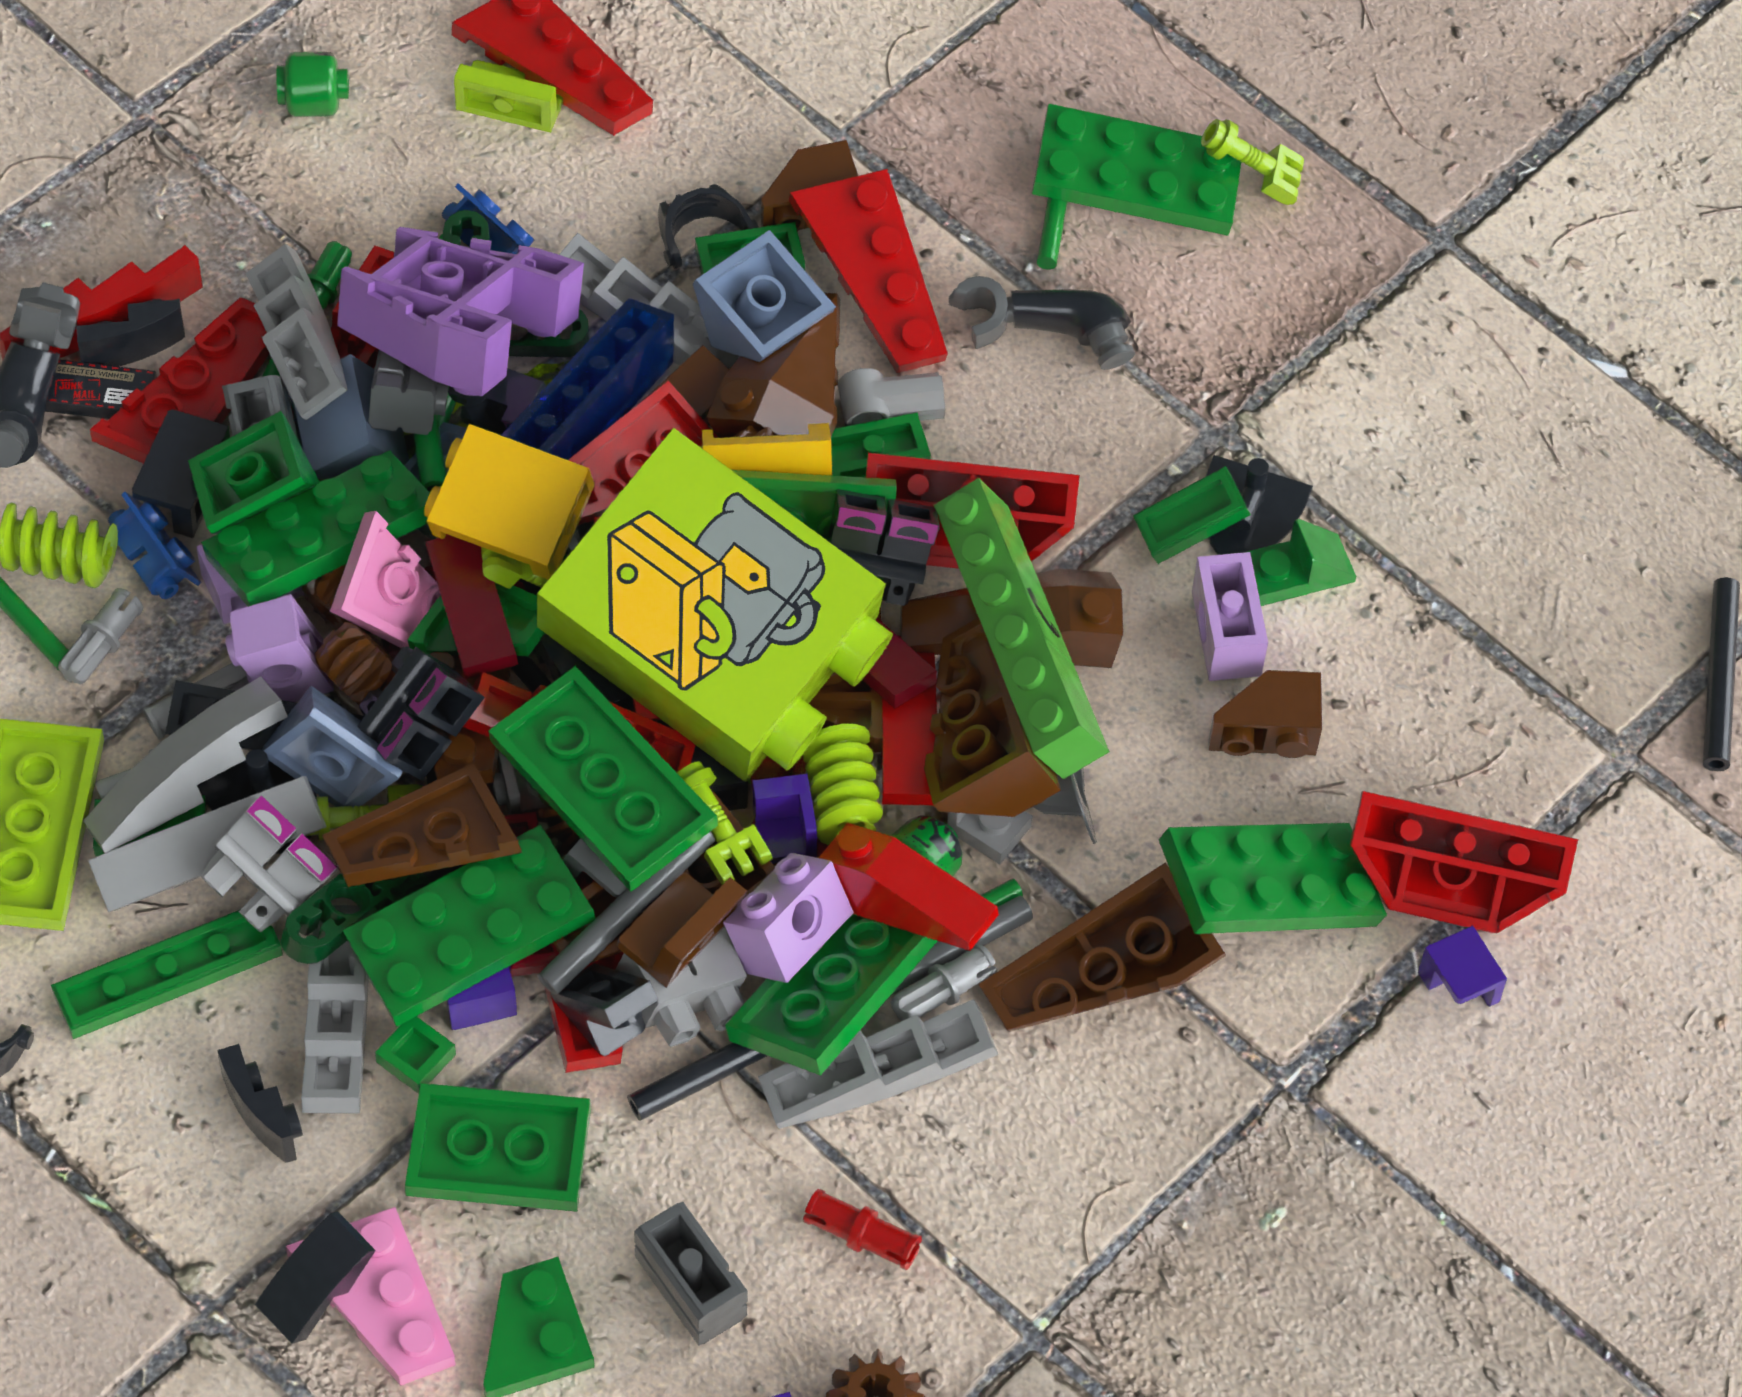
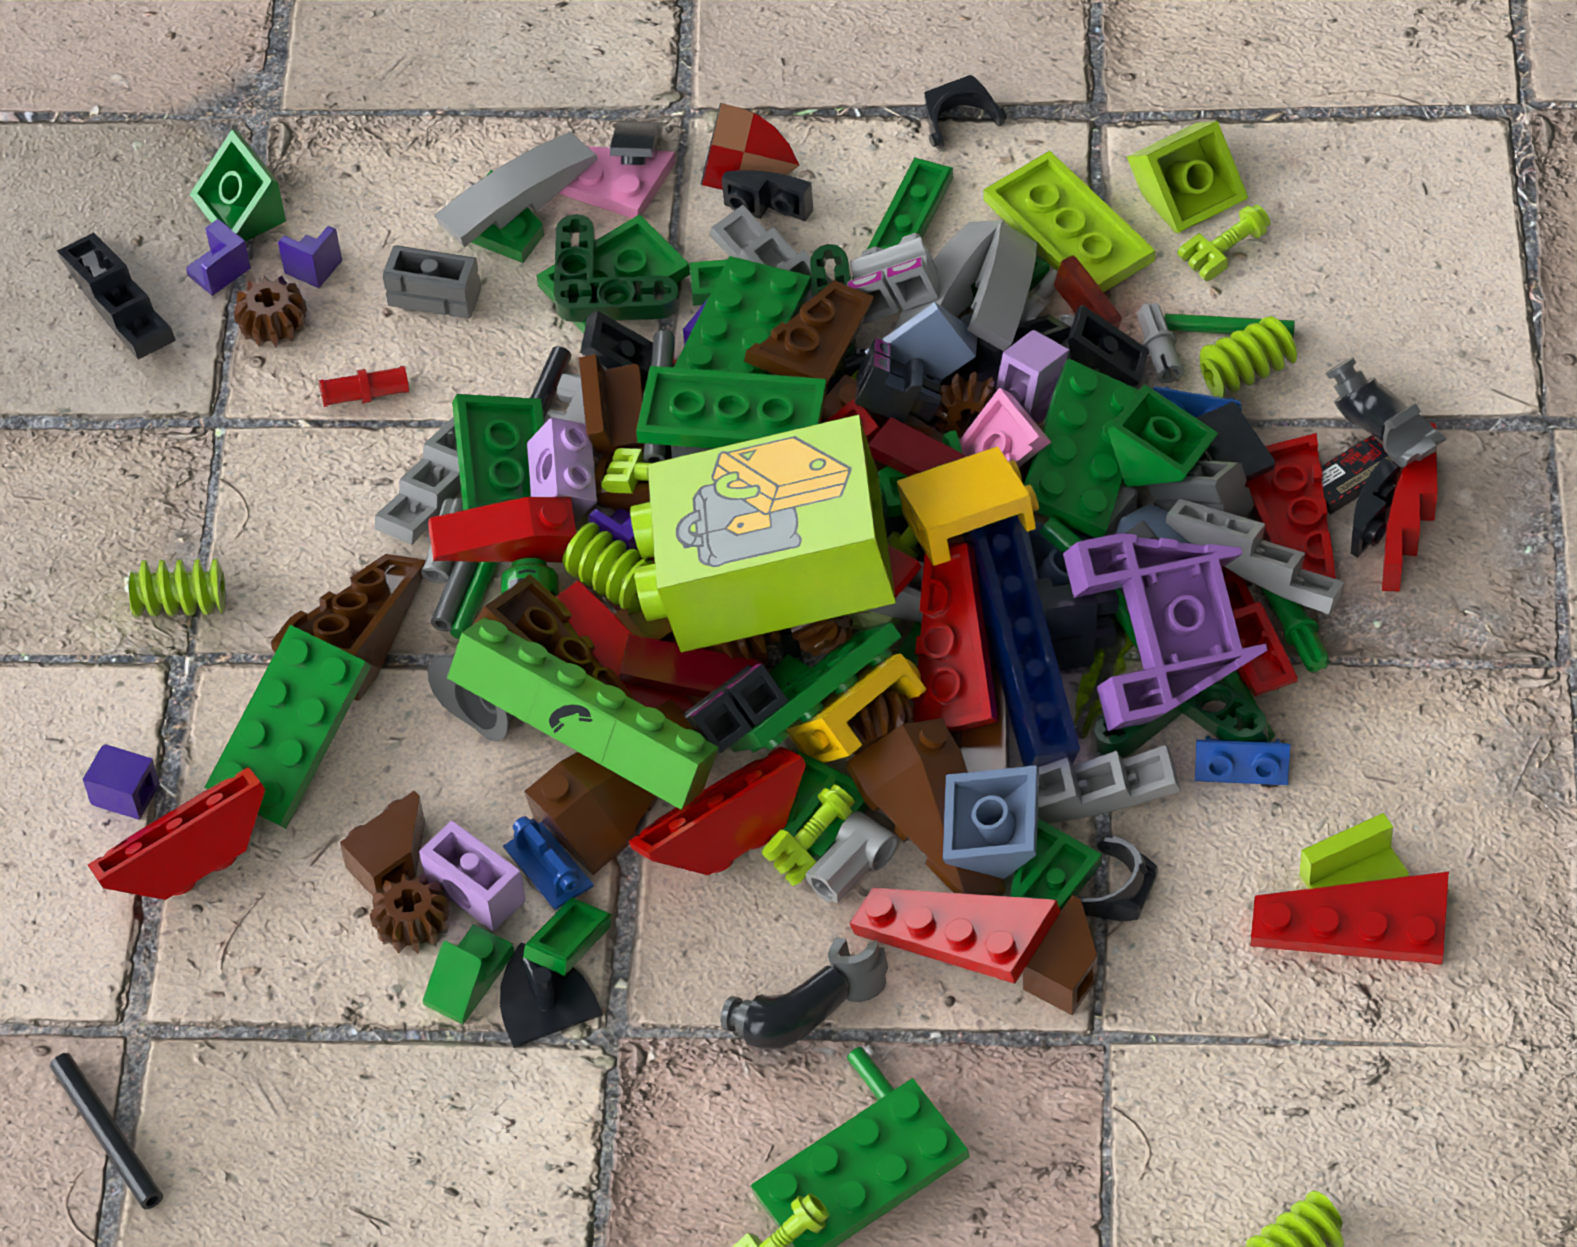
camera: 145 degrees right, 5 degrees down
(118, 713) = (1080, 289): none -> clear red tile
(165, 654) = (1104, 346): none -> black slope
(225, 1169) = (745, 143): none -> shield
(311, 84) = (1482, 754): green head -> none
(500, 1306) = (510, 189): none -> light grey slope
(547, 1134) = (585, 285): none -> dark green beam
(869, 424) = (791, 851): none -> lime hinge
(1146, 598) = (546, 863): none -> blue hinge
(1245, 1136) = (177, 589): none -> lime piece
(1307, 640) = (410, 913): none -> reddish brown gear

